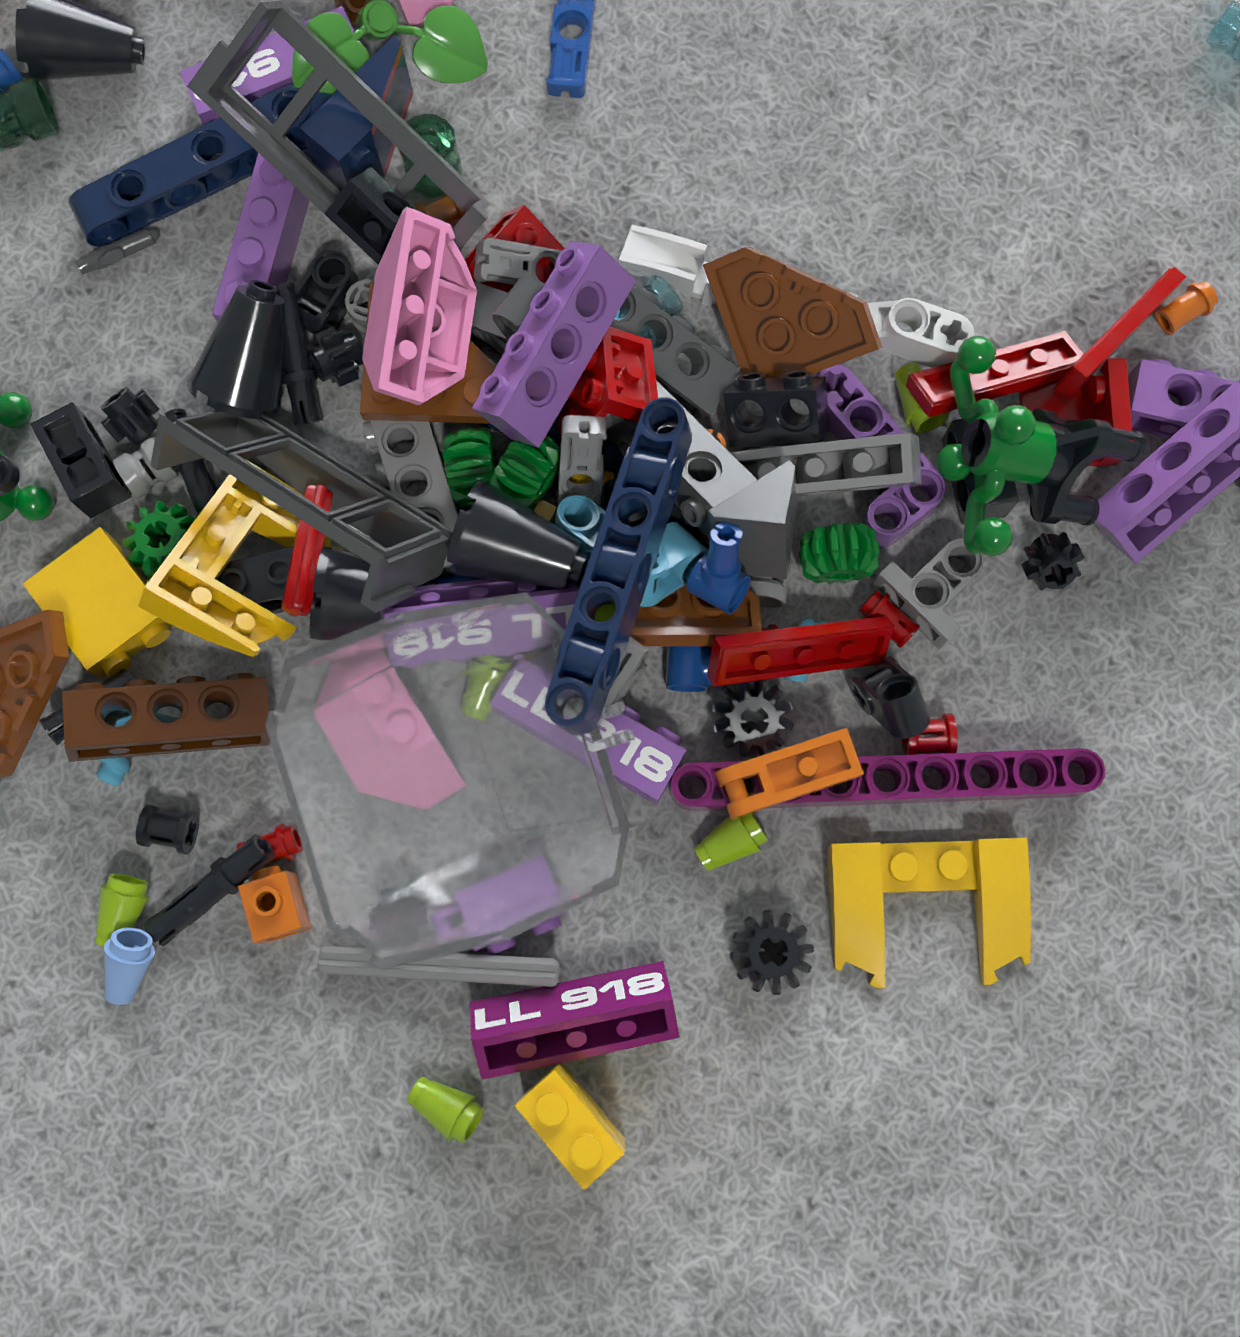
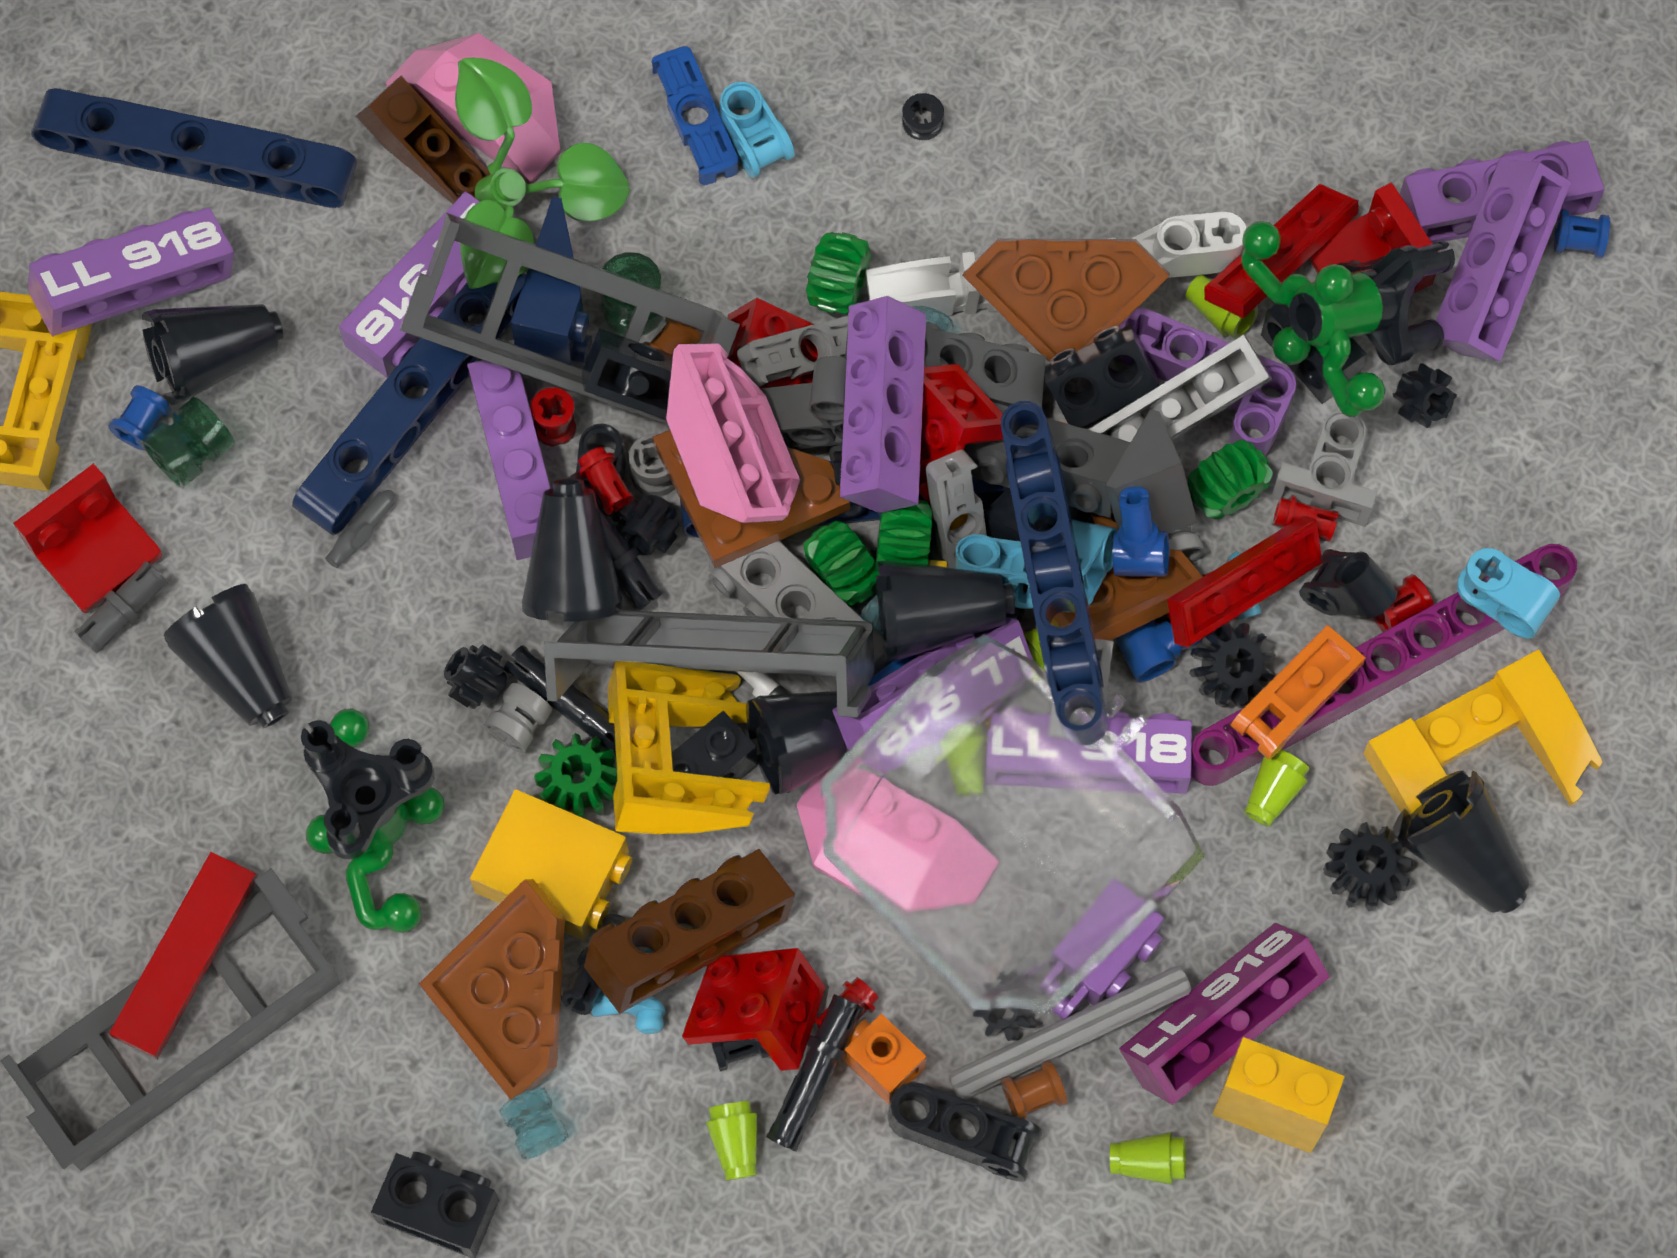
camera: 30 degrees left, 10 degrees down
(80, 460) = (457, 738): black brick -> none
(125, 963) = (774, 1180): light blue cone -> none
(195, 810) = (760, 998): none -> red bracket
(304, 558) = (742, 716): red axle -> none
(307, 218) = (547, 404): none -> red bush
(312, 300) = (604, 478): none -> red pin
(328, 1015) = (992, 1130): none -> black piece
(381, 999) = (1034, 1090): none -> dark orange bush
(608, 214) = (838, 272): none -> green gear
(609, 65) = (757, 135): none -> medium azure piece
(757, 131) = (926, 130): none -> black bush
(863, 977) = (1465, 841): none -> black cone
(1028, 782) = (1511, 596): none -> medium azure piece
(1118, 334) = (1371, 164): red tile -> none
(1195, 302) = (1422, 103): orange pin -> none

